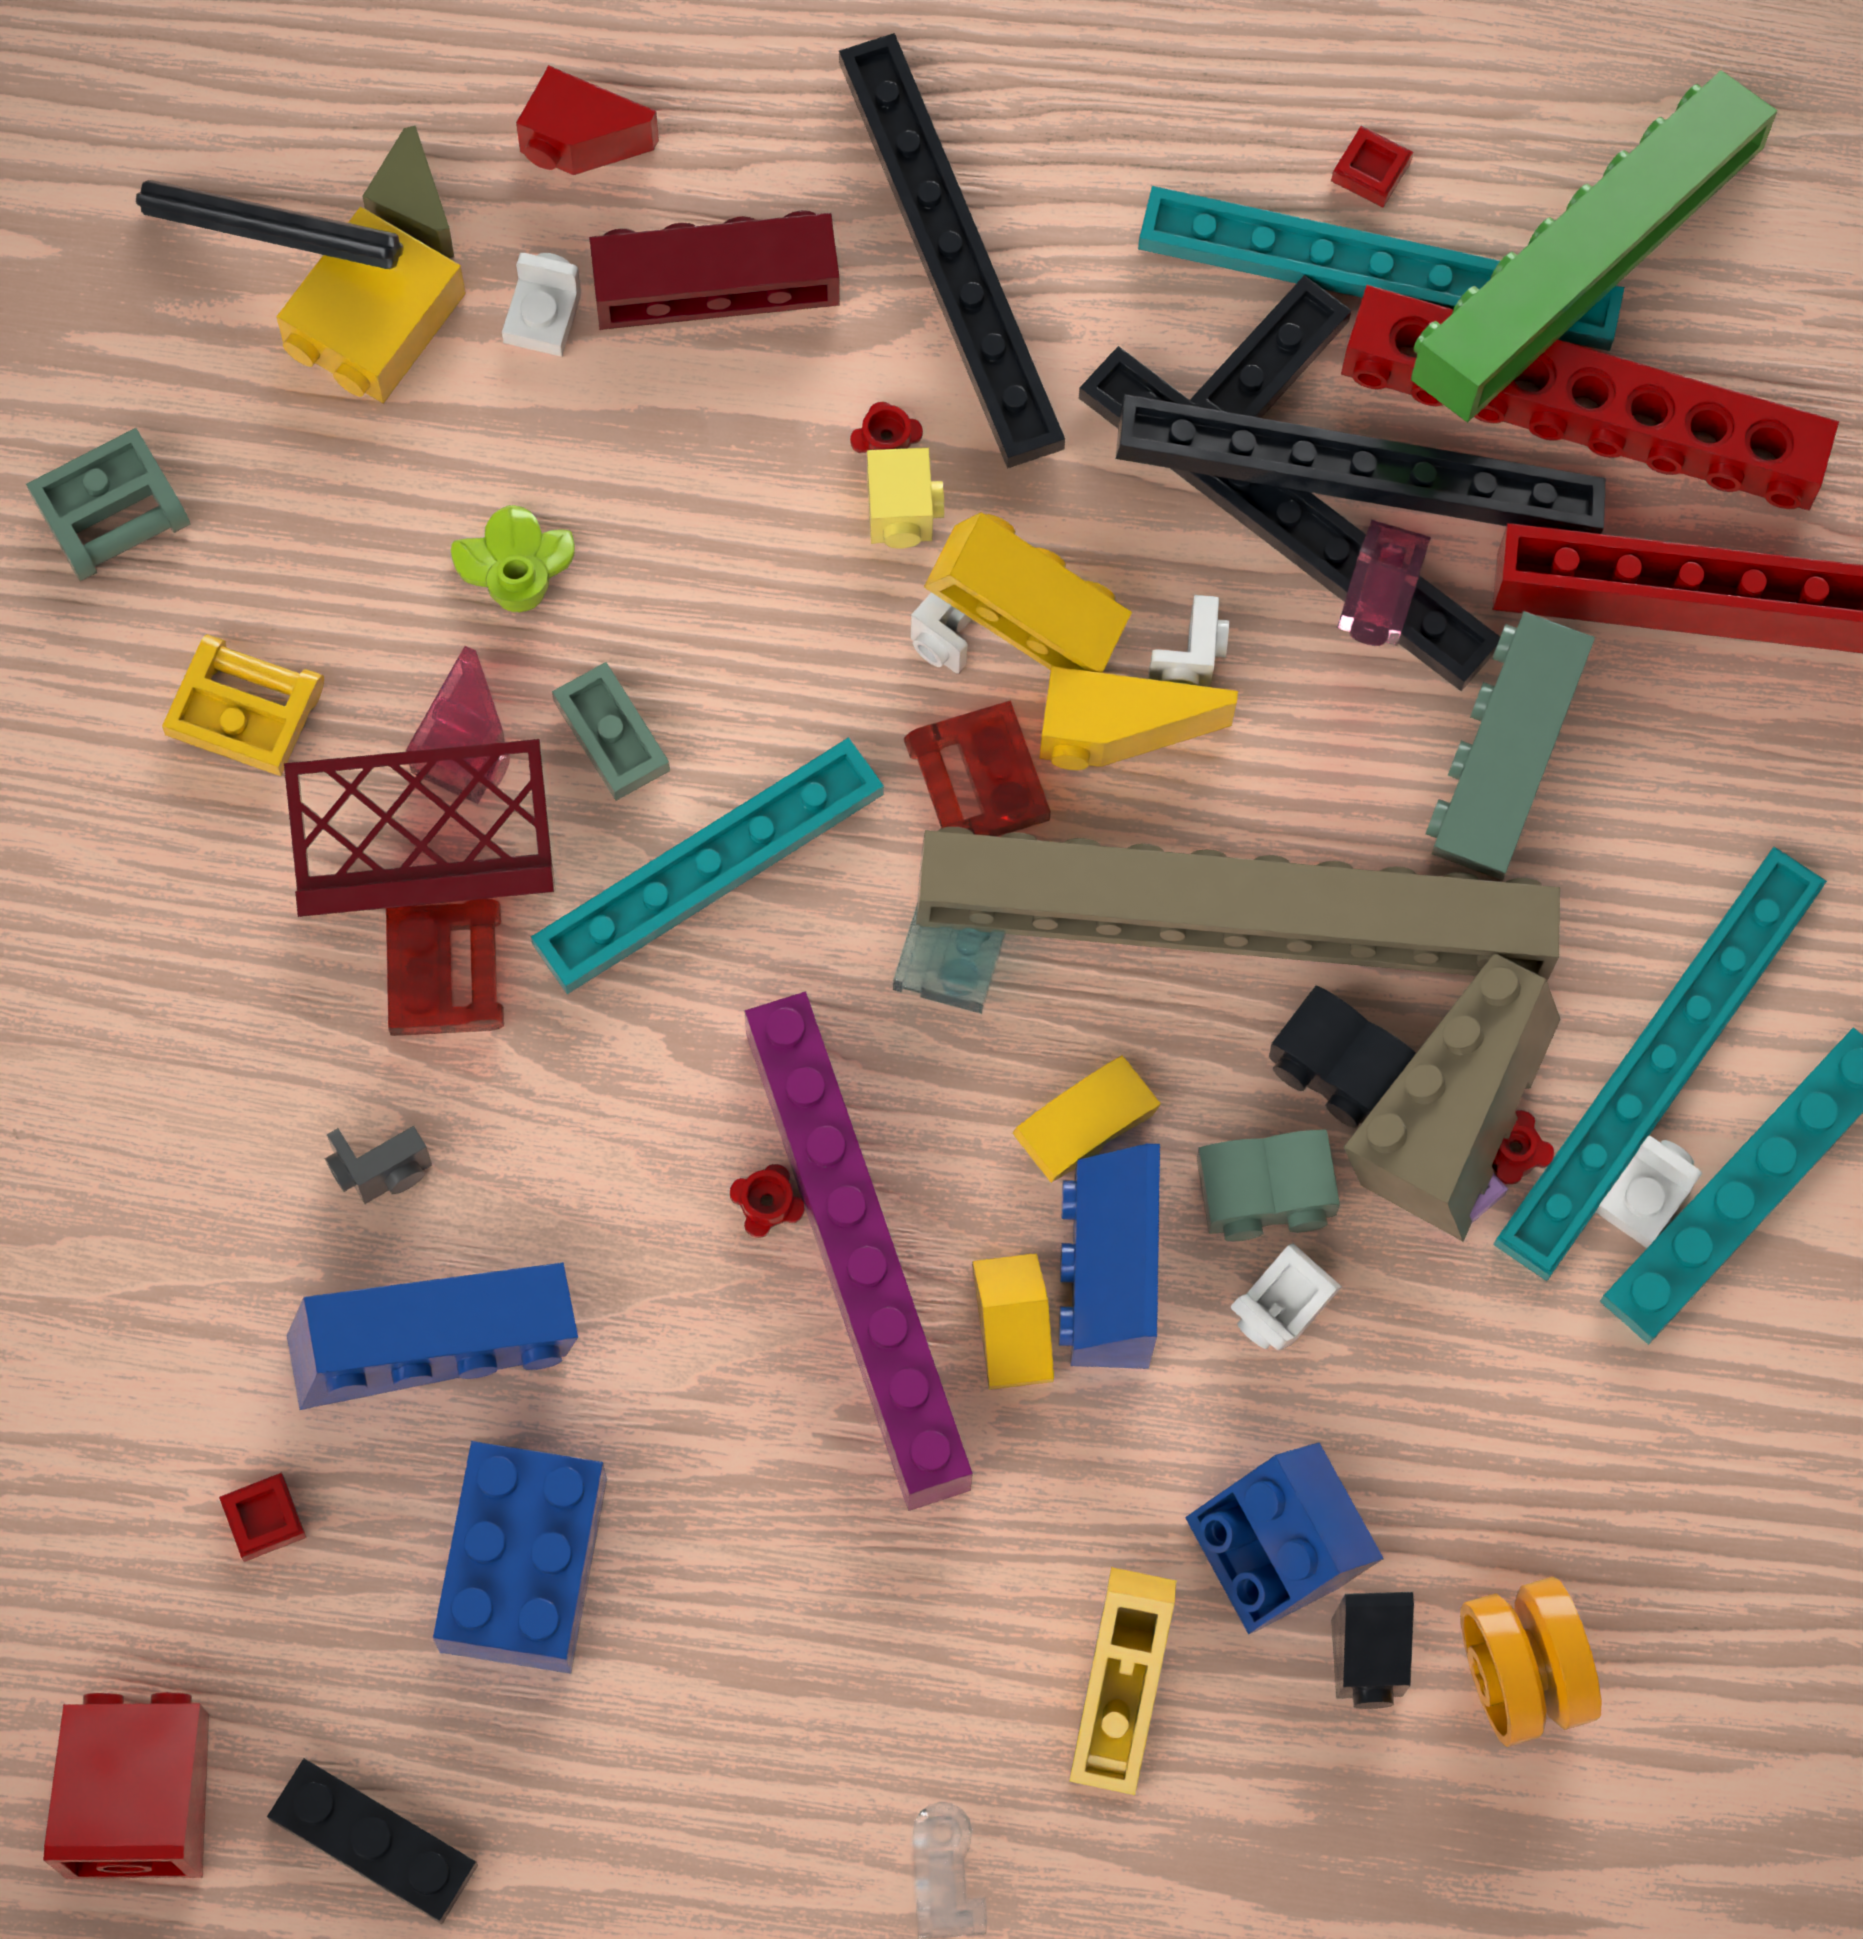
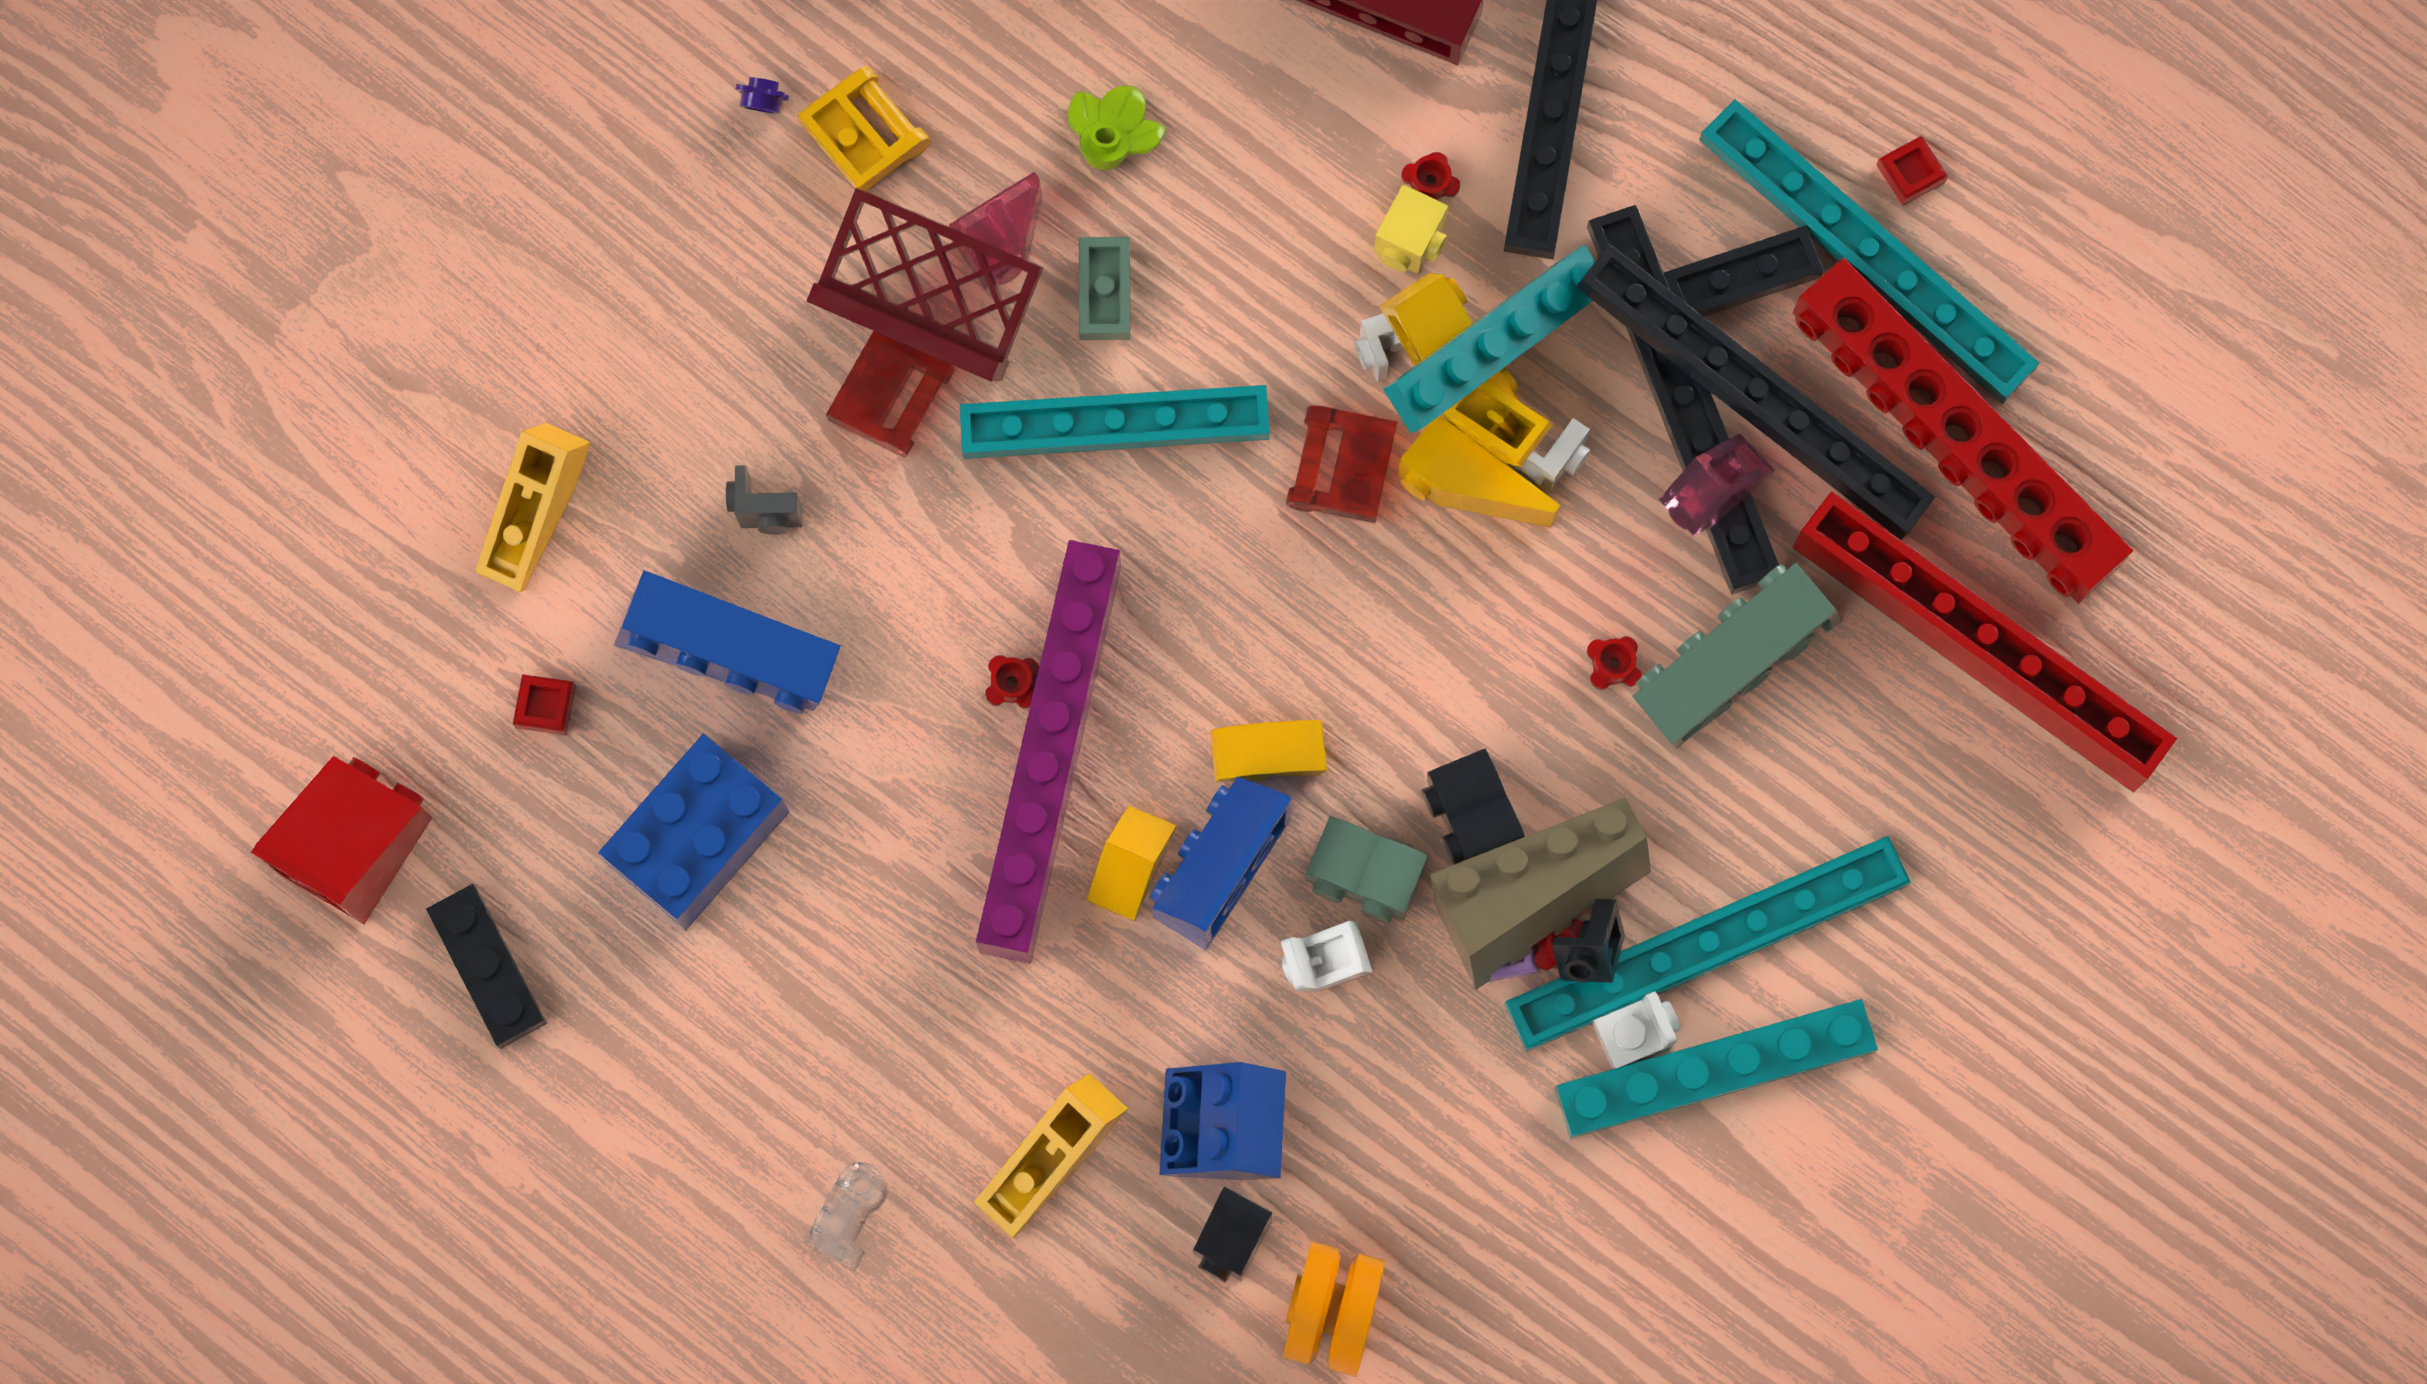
camera: 35 degrees right, 5 degrees up
(108, 727) = (761, 95): none -> dark purple plate
(117, 1306) = (531, 503): none -> yellow slope
(949, 964) = (1252, 572): clear light blue plate -> none
(1069, 557) = (1491, 342): none -> teal plate
(1124, 637) = (1499, 423): none -> yellow slope
(1234, 904) = (1465, 658): dark tan brick -> none
(1391, 809) = (1620, 649): none -> red plate
(1559, 1134) = (1596, 951): none -> black bracket
(1591, 245) = (2031, 317): bright green brick -> none

